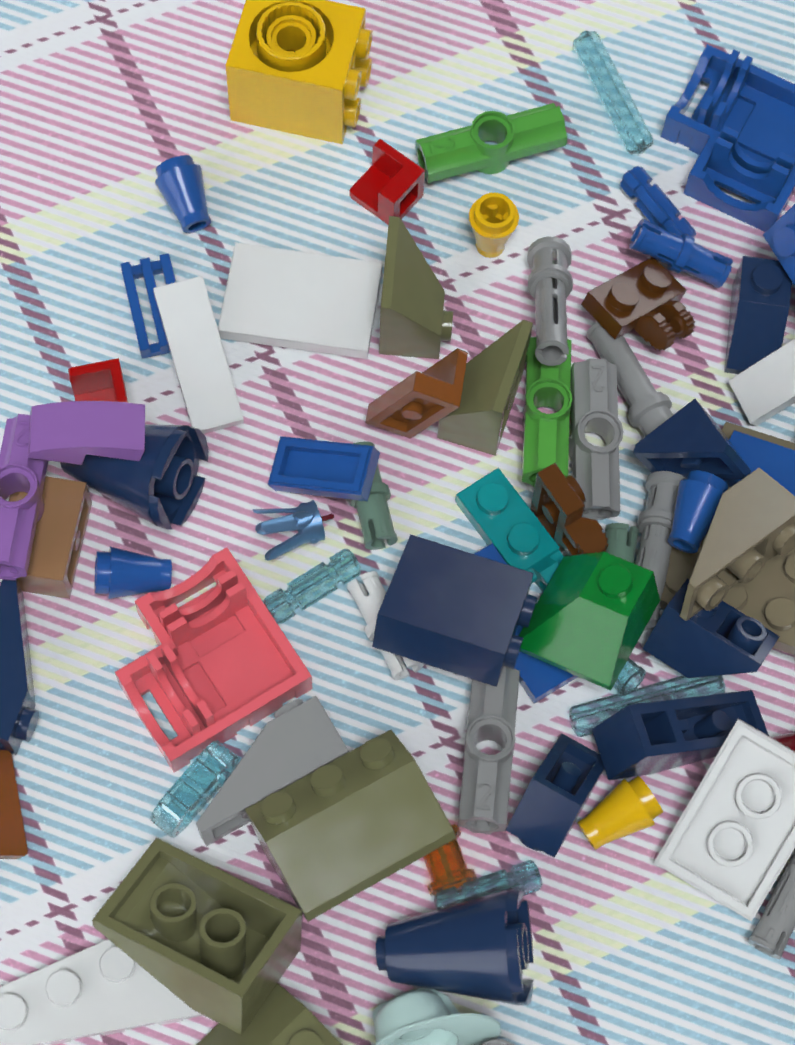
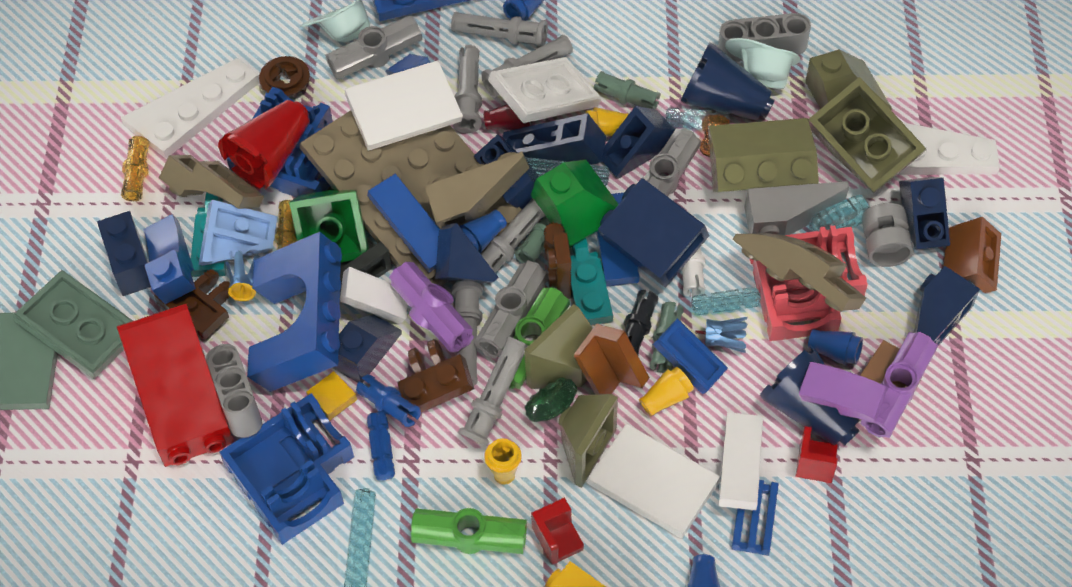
camera: 150 degrees left, 10 degrees down
(69, 851) = (926, 211): none -> dark blue slope
(111, 773) = (887, 234): none -> light grey wheel
(215, 623) = (796, 259): none -> dark tan slope
(334, 412) = (668, 390): none -> yellow cone
(416, 493) = (638, 322): none -> black pin
(461, 323) = (551, 400): none -> clear green gear
(621, 894) = (626, 91): none -> sand green pin
(728, 396) = (431, 307): none -> medium lavender piece
(750, 241) = (333, 395): none -> yellow tile

